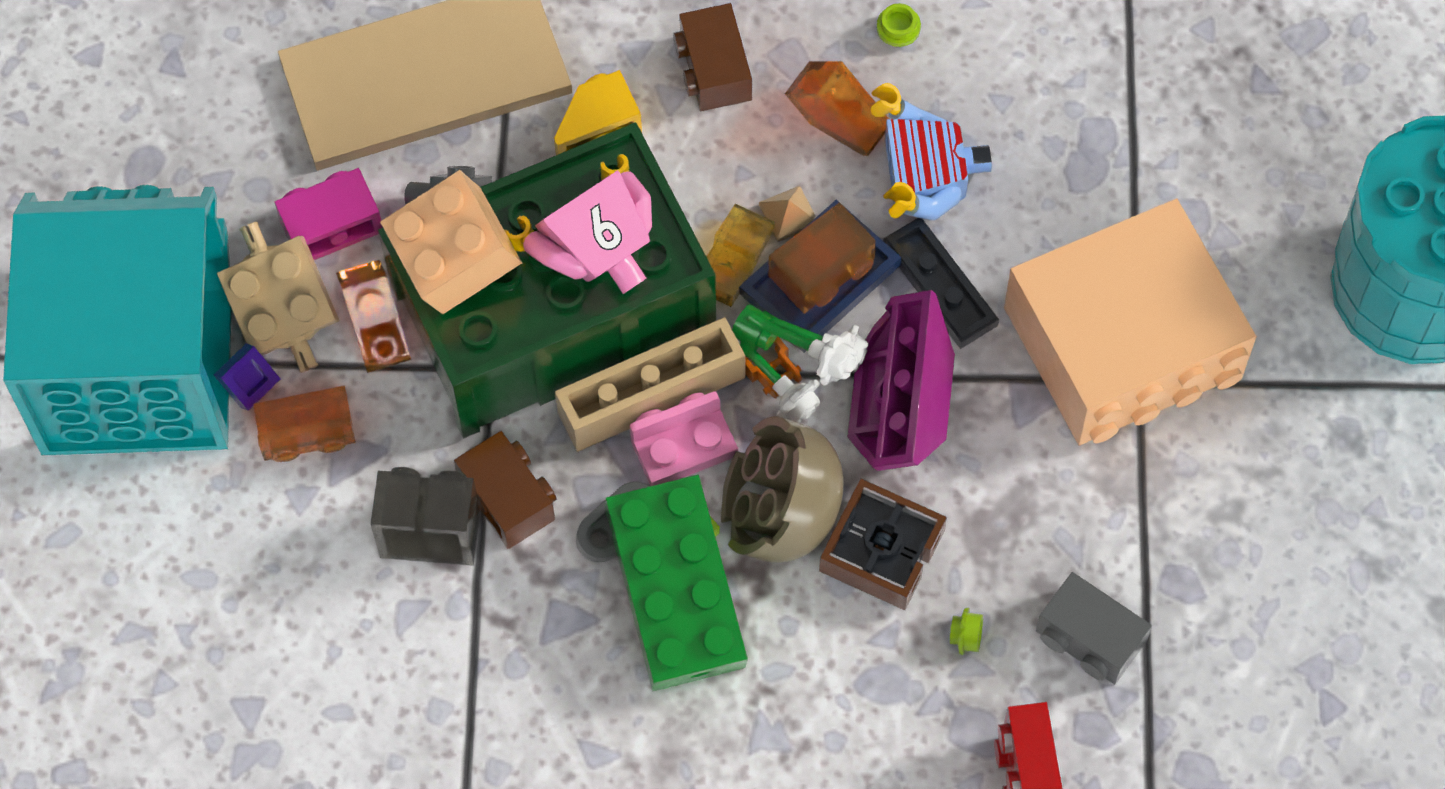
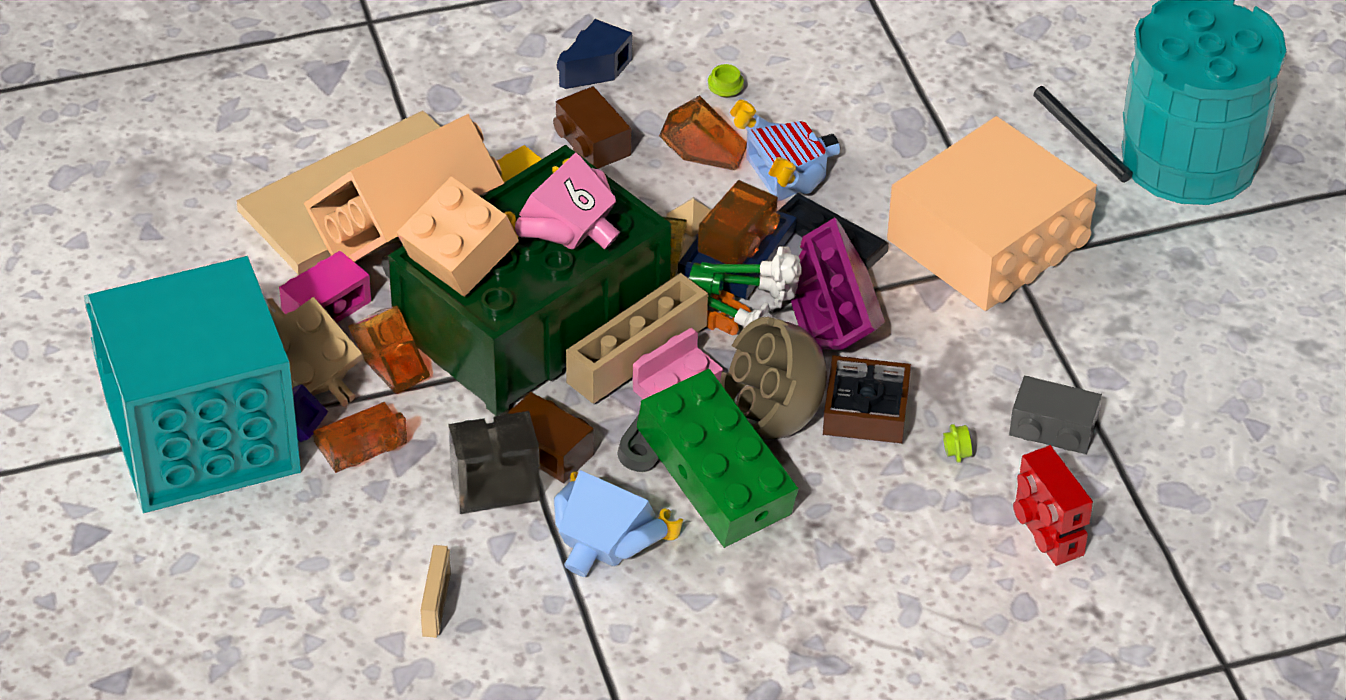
camera: 20 degrees left, 20 degrees down
(309, 665) = (435, 591): none -> tan tile
(442, 120) = (376, 199): none -> light nougat brick
(523, 630) = (606, 522): none -> light blue torso
(1297, 219) = (1083, 134): none -> black bar

